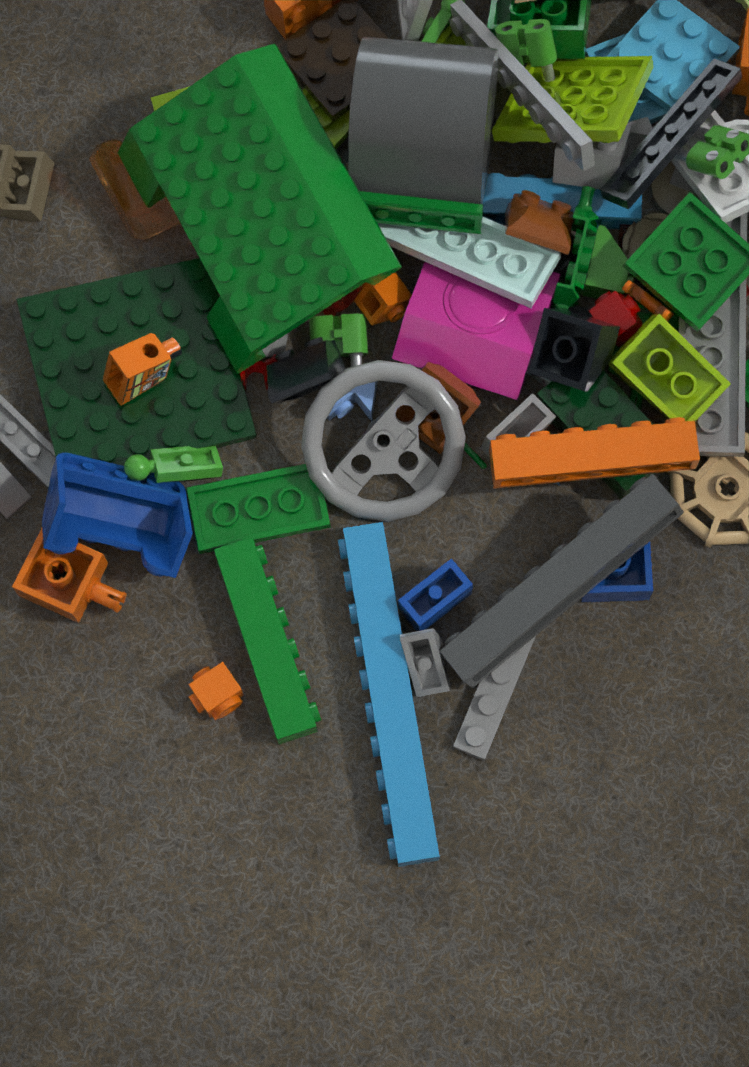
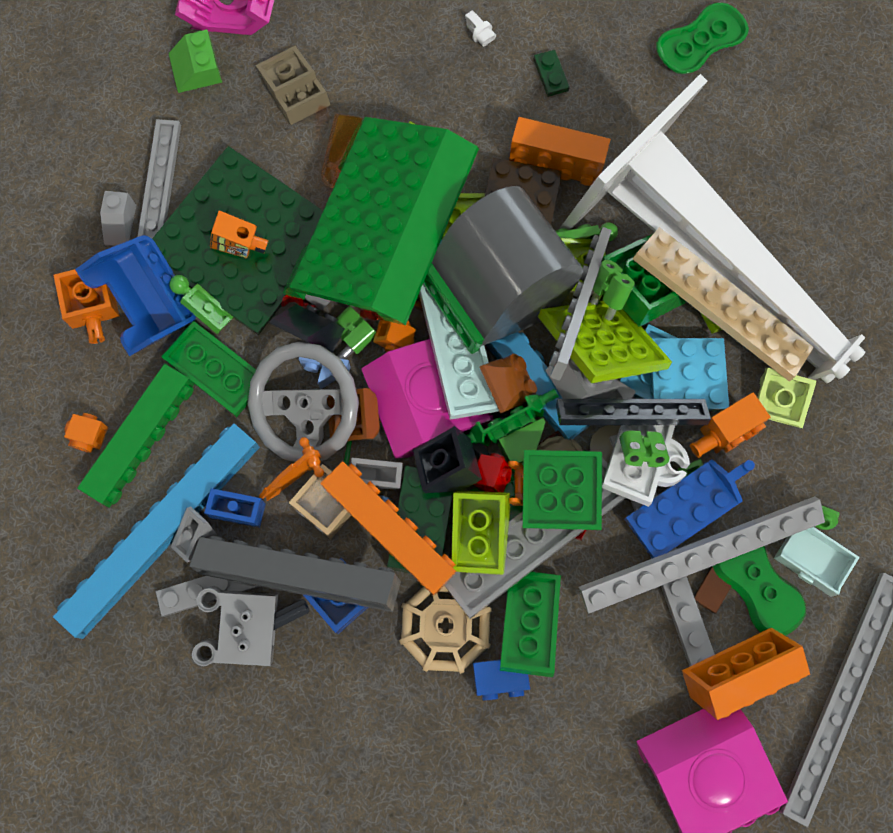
camera: 45 degrees right, 0 degrees up
(452, 476) = (309, 461): none -> orange piece
(505, 511) = (319, 506): none -> piece
(569, 679) = (246, 626): none -> light grey piece

